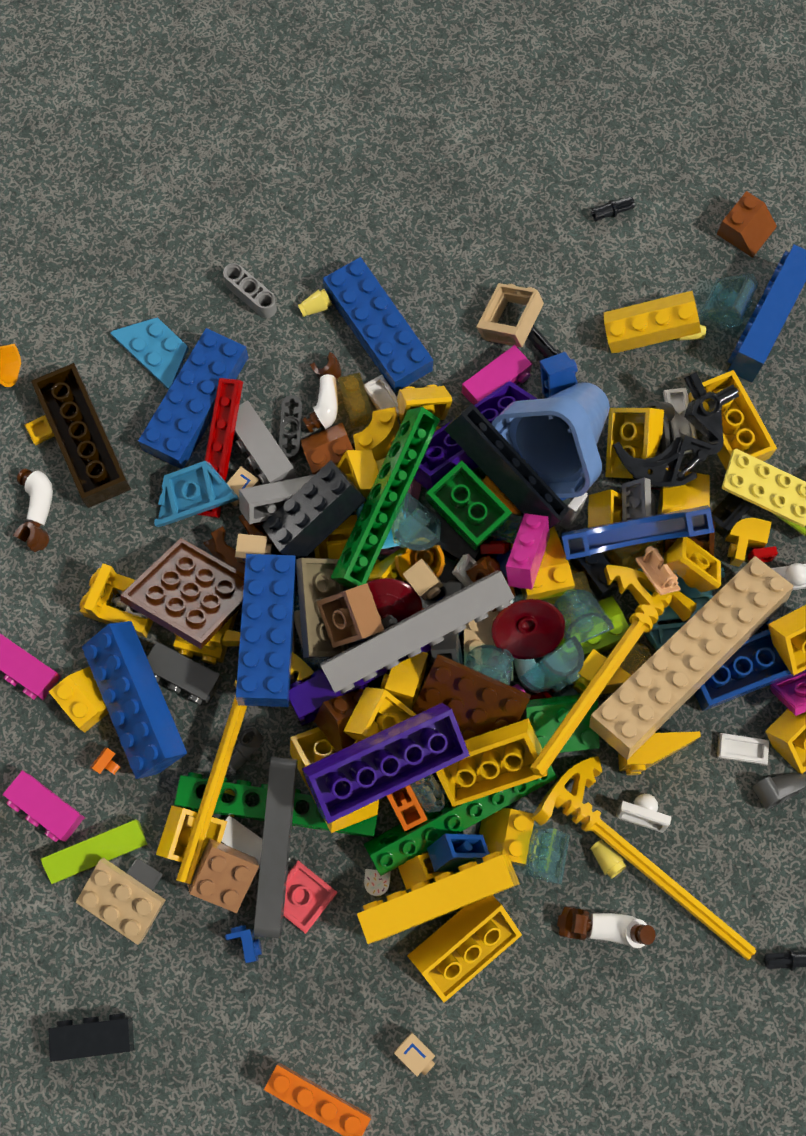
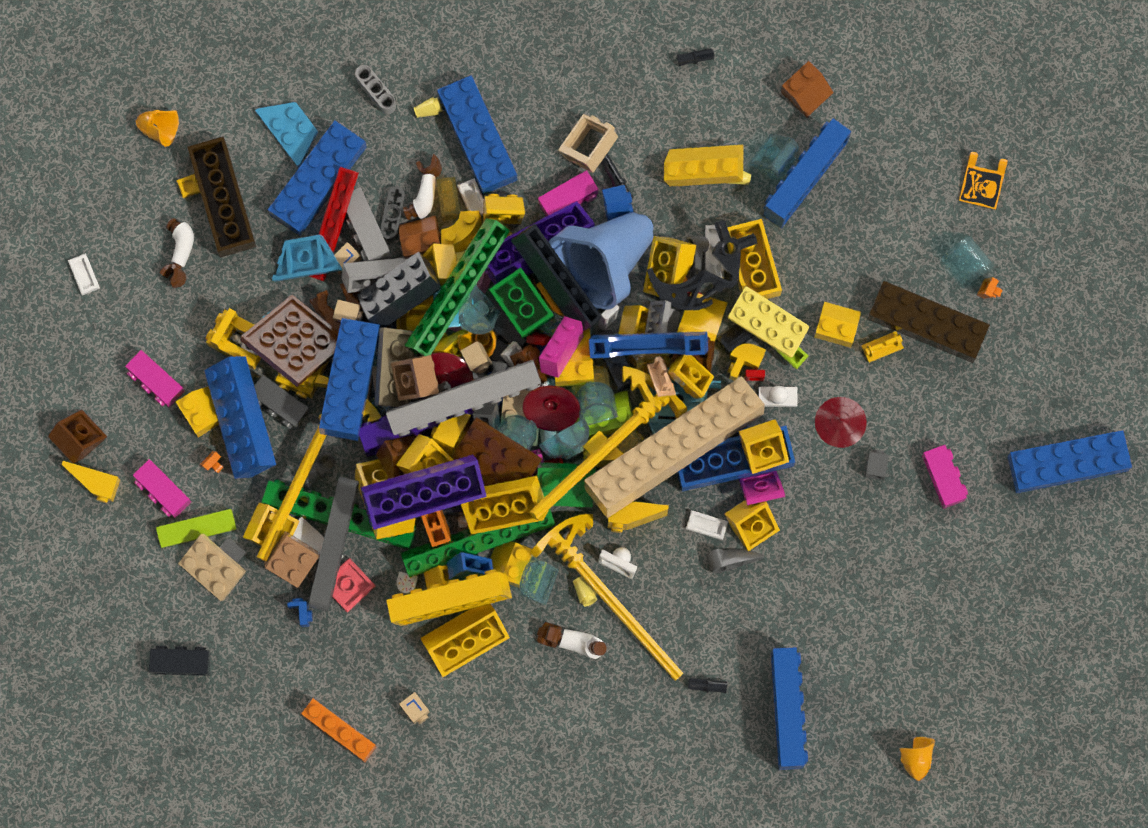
camera: 10 degrees right, 5 degrees up
(429, 794) = (454, 521): clear light blue beam -> none

